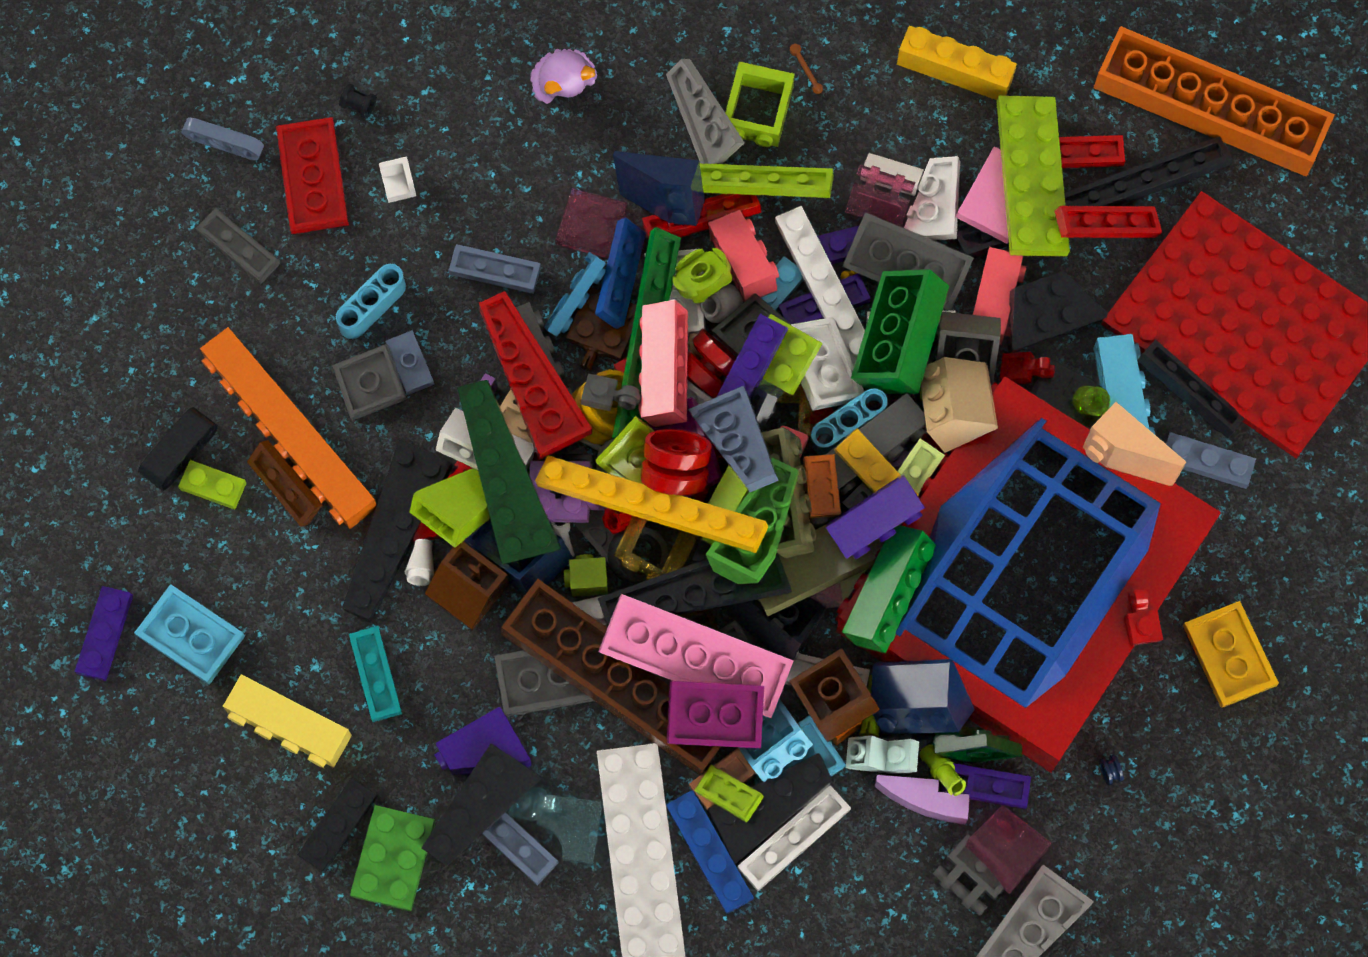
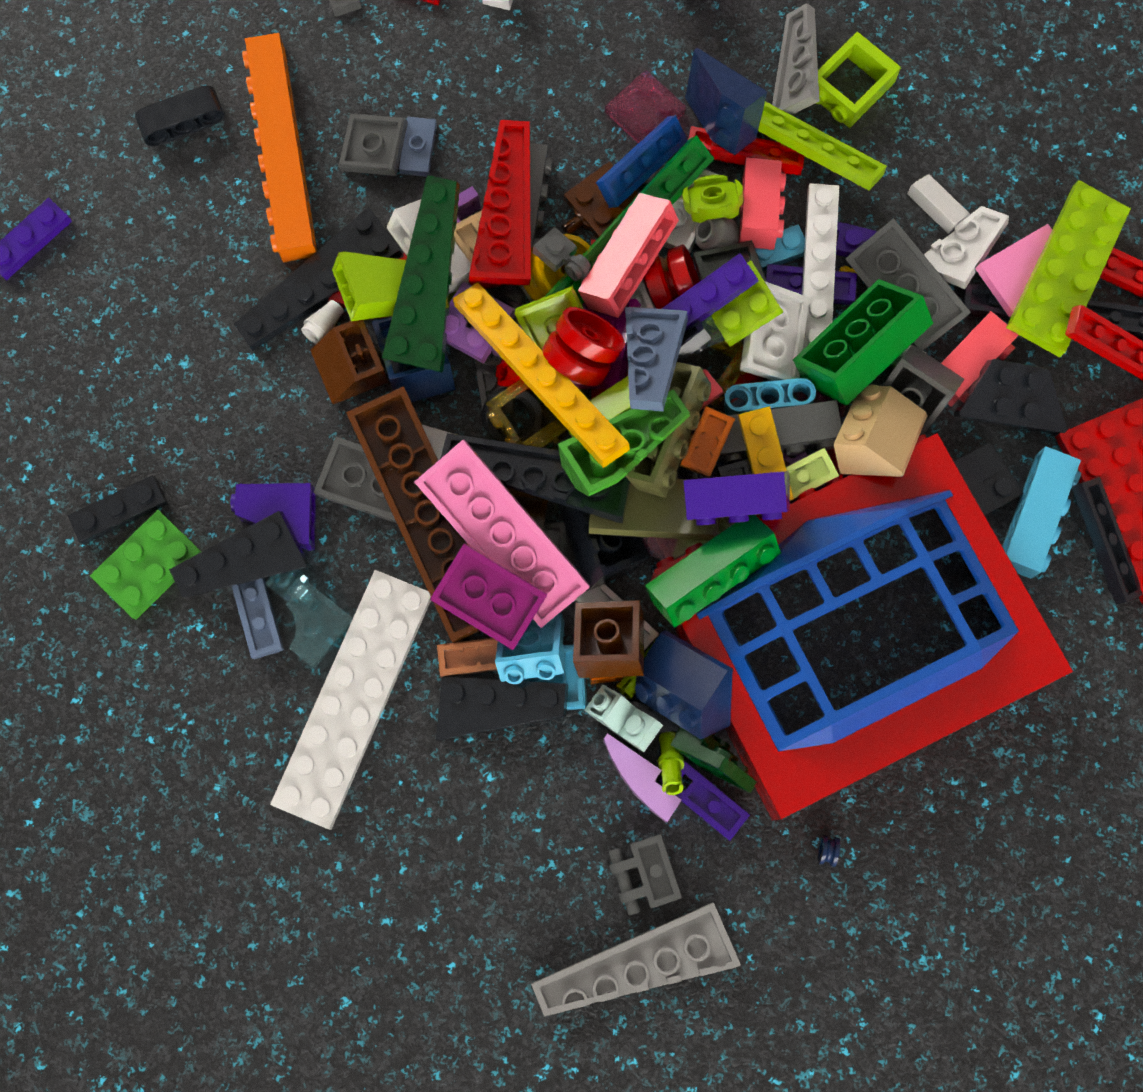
camera: 30 degrees right, 5 degrees up
(189, 634) = (94, 277): medium azure plate -> none
(212, 484) = (191, 162): lime plate -> none
(284, 483) = (249, 192): reddish brown plate -> none
(286, 721) = (127, 396): light yellow brick -> none
(372, 288) = (424, 65): medium azure beam -> none
(375, 674) = (226, 396): teal plate -> none
(494, 268) = (537, 104): sand blue plate -> none
(560, 318) = (592, 161): dark azure wing -> none
(563, 532) = (462, 361): white hand -> none
(586, 576) = (457, 411): lime brick -> none
(709, 852) = (420, 716): blue plate -> none
(729, 793) = (463, 674): lime plate -> none
(794, 838) = (501, 747): white plate -> none
(795, 50) = (914, 53): dark orange hinge -> none
(876, 202) = (910, 218): clear pink plate -> none
(956, 63) = (1054, 133): yellow brick -> none
(1008, 847) = (690, 868): clear pink plate -> none
(1022, 365) = (962, 435): red plate -> none
(1084, 401) = (999, 498): clear neon green wheel -> none
(1131, 448) = (1021, 564): light nougat slope -> none
(1142, 624) = (935, 735): red plate -> none
(1212, 460) = (1085, 614): sand blue plate -> none
(1230, 654) = (1004, 807): yellow plate -> none

